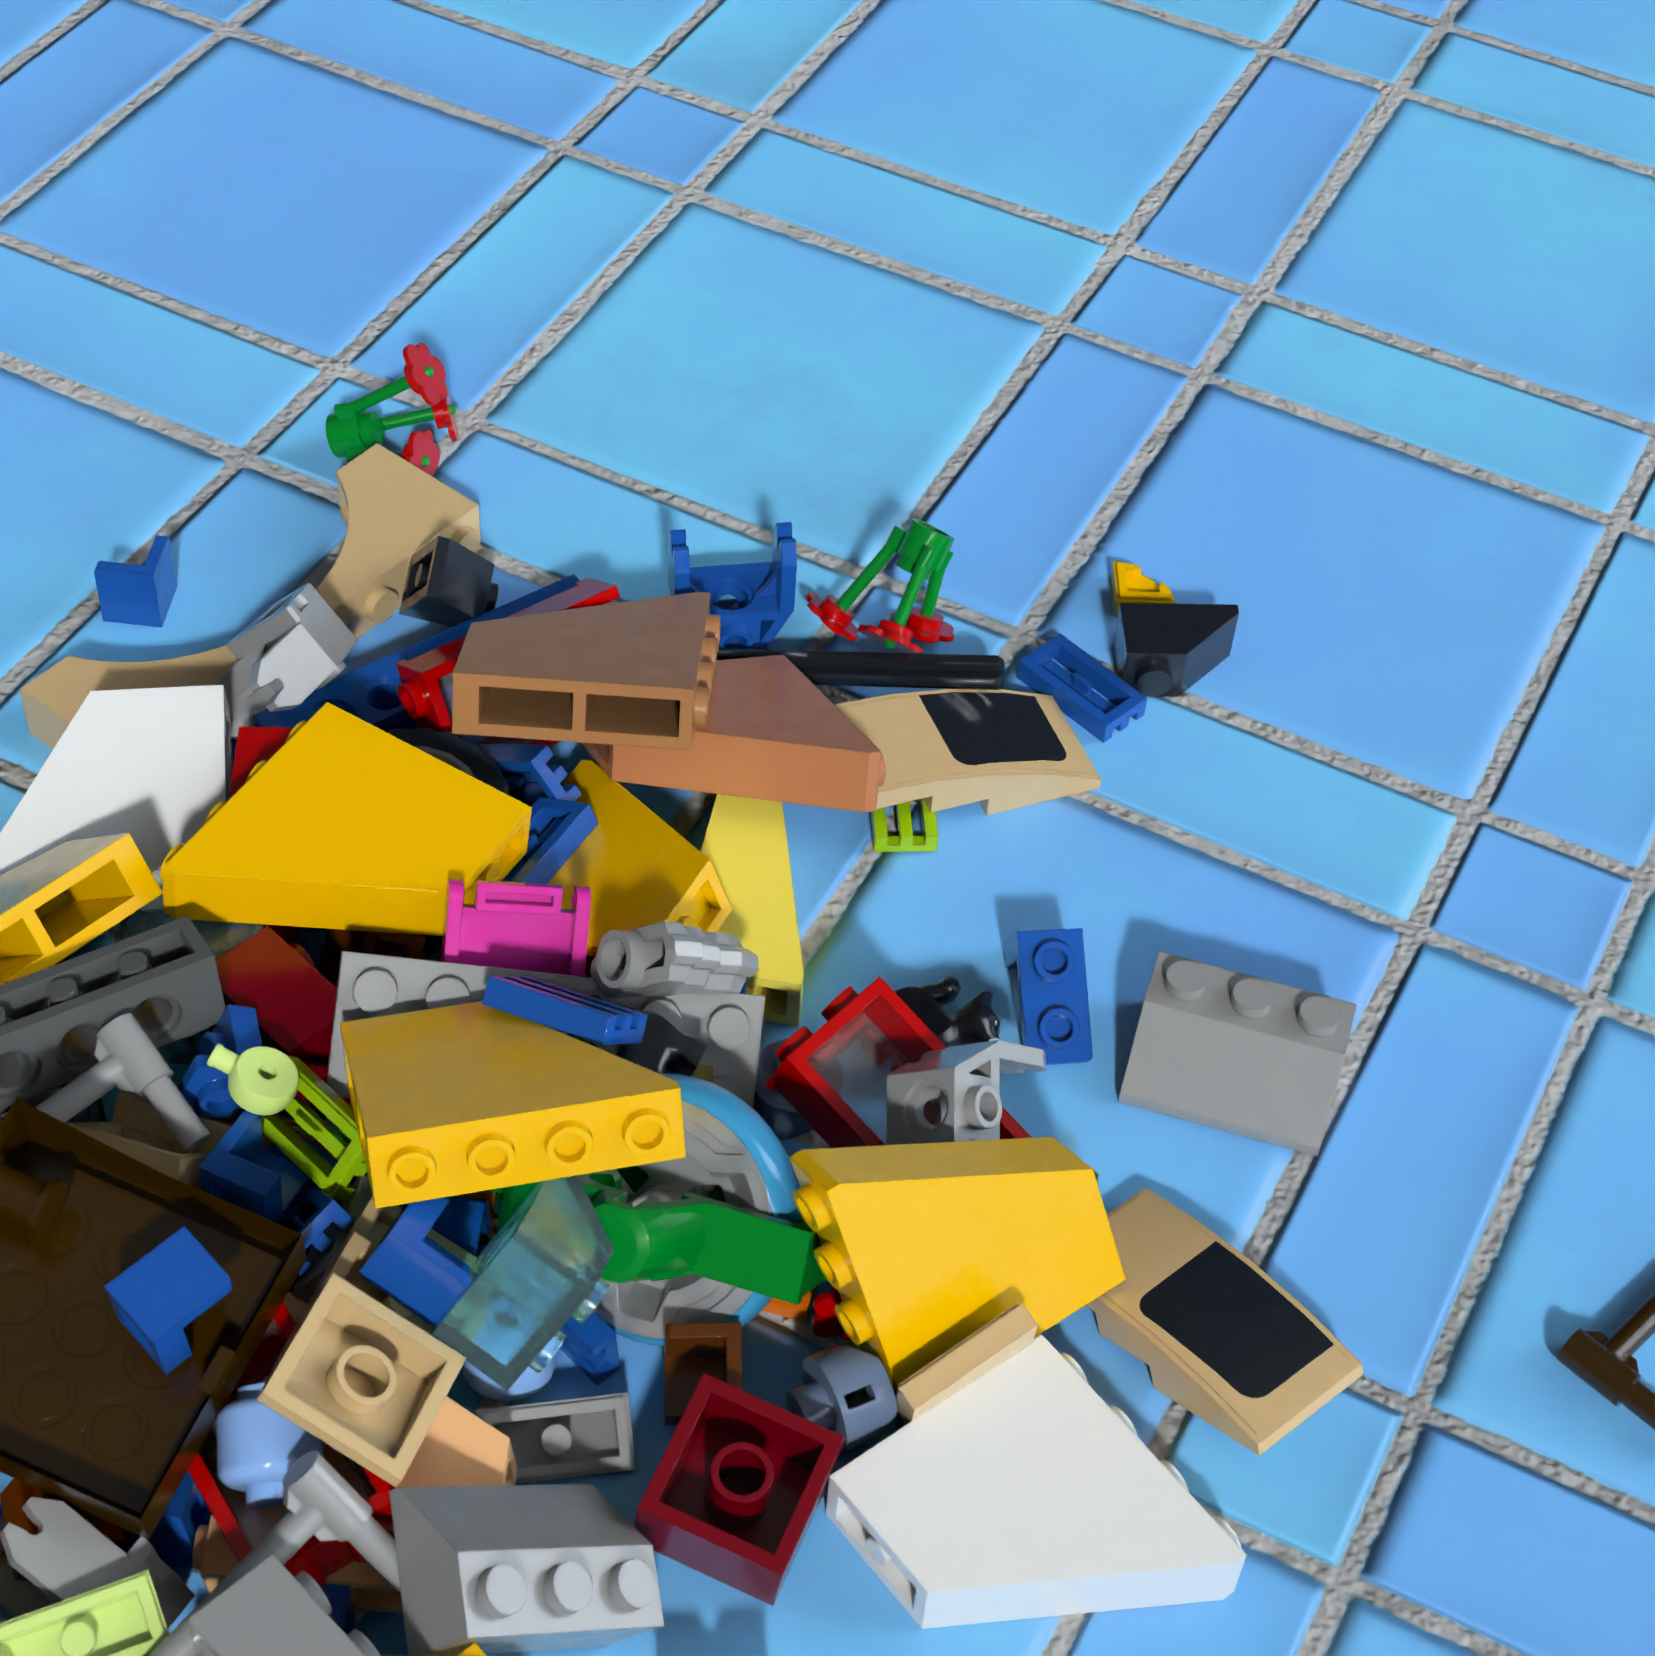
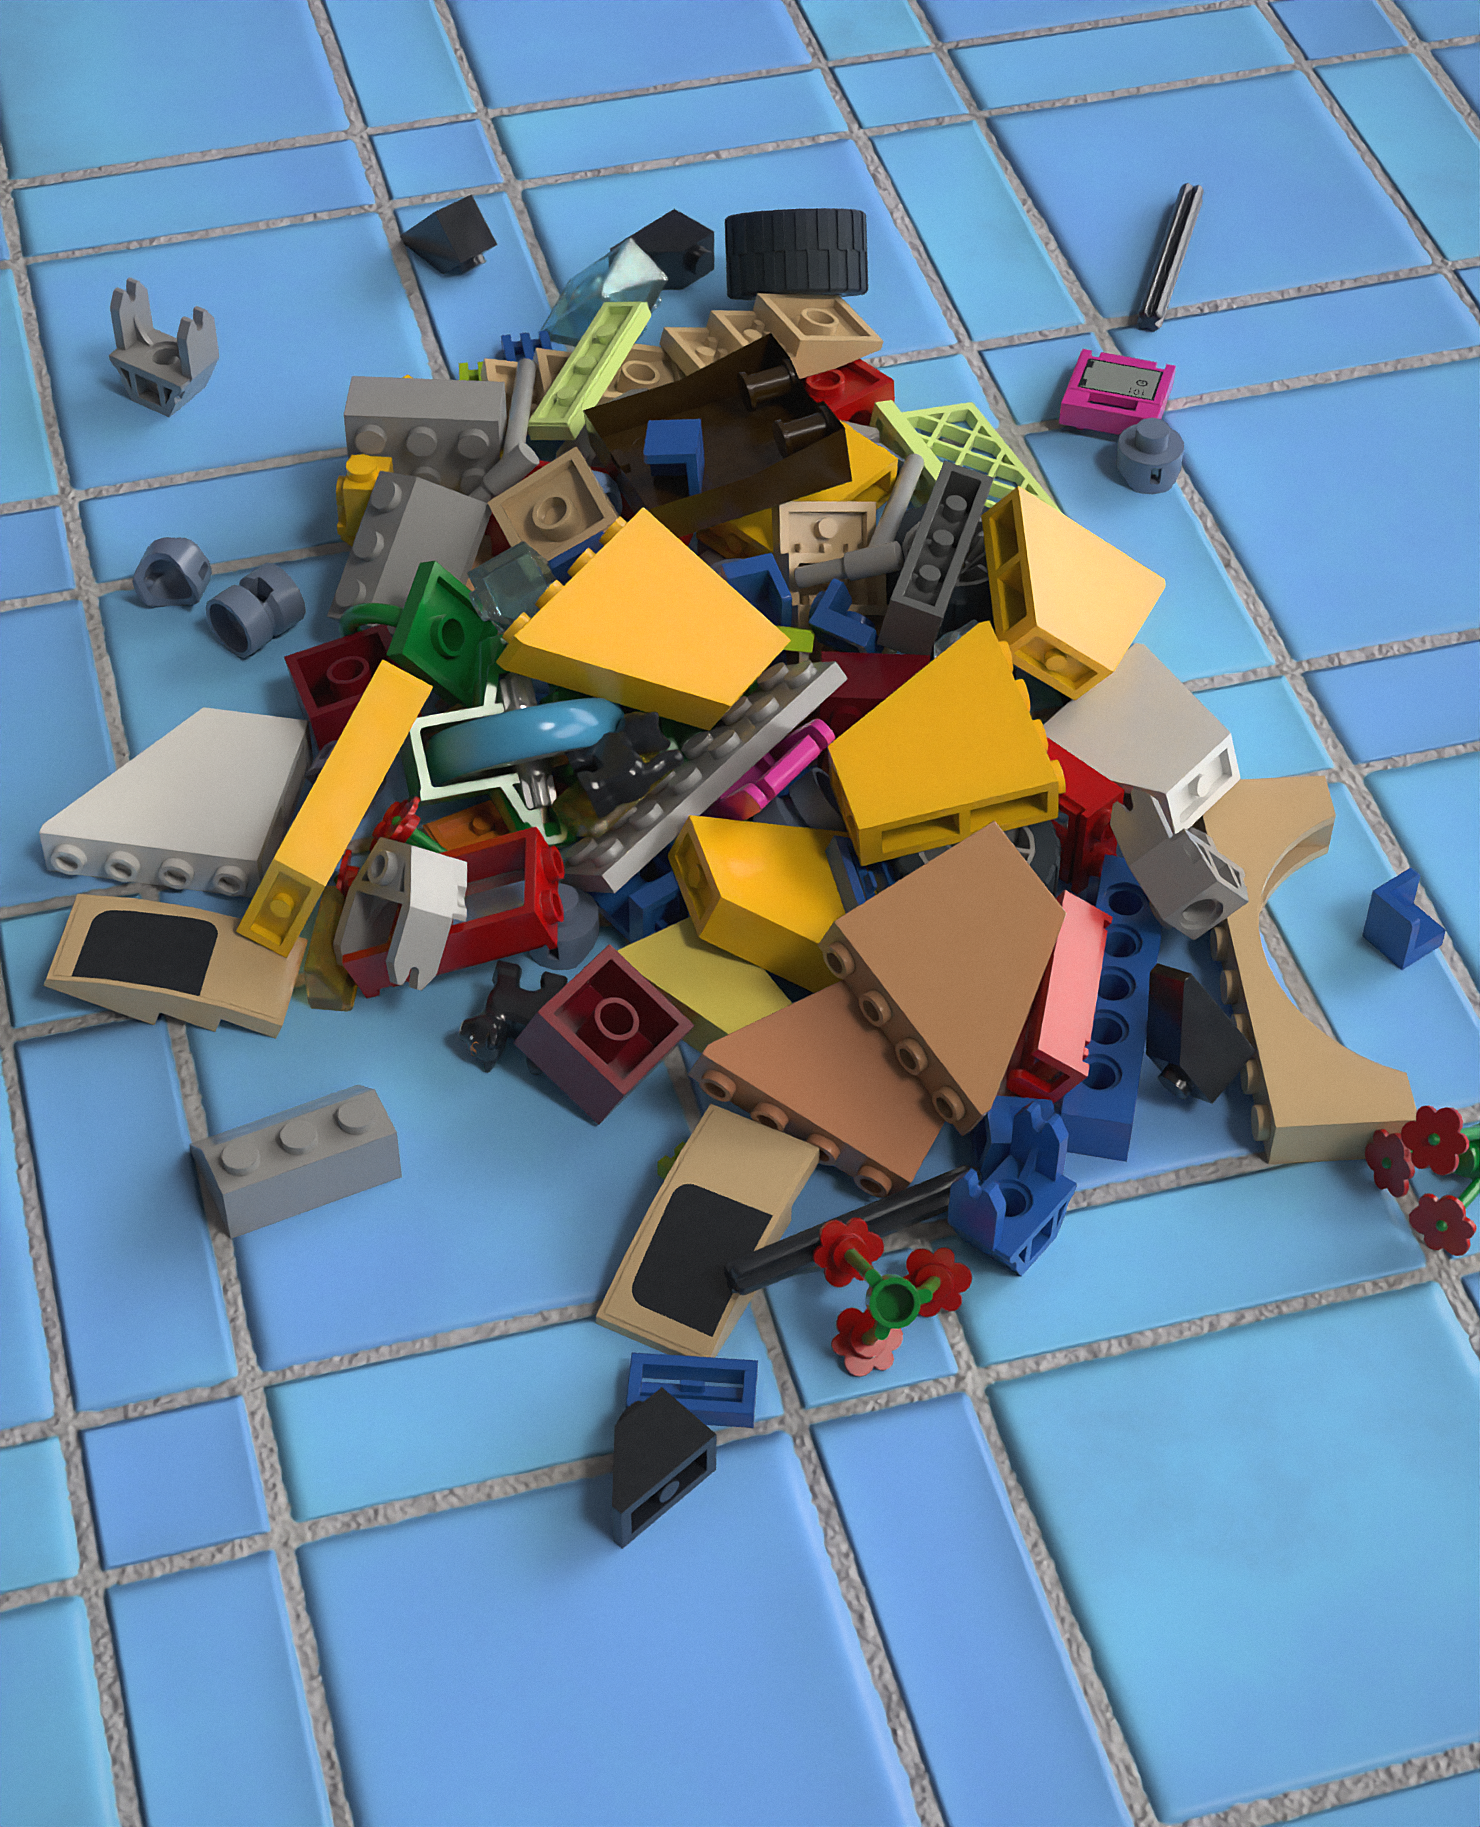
camera: 140 degrees right, 0 degrees up
(258, 1078) = (798, 600): yellowish green piece -> none
(565, 1010) = (715, 710): blue tile -> none
(621, 1416) = (432, 632): none -> green tile
(671, 961) = (653, 797): light grey rock -> none
(893, 919) = (603, 1034): none -> brick
(966, 1362) = (278, 799): tan tile -> none
(1052, 992) = (480, 1100): blue bracket -> none
(1133, 587) = (743, 1532): yellow tile -> none

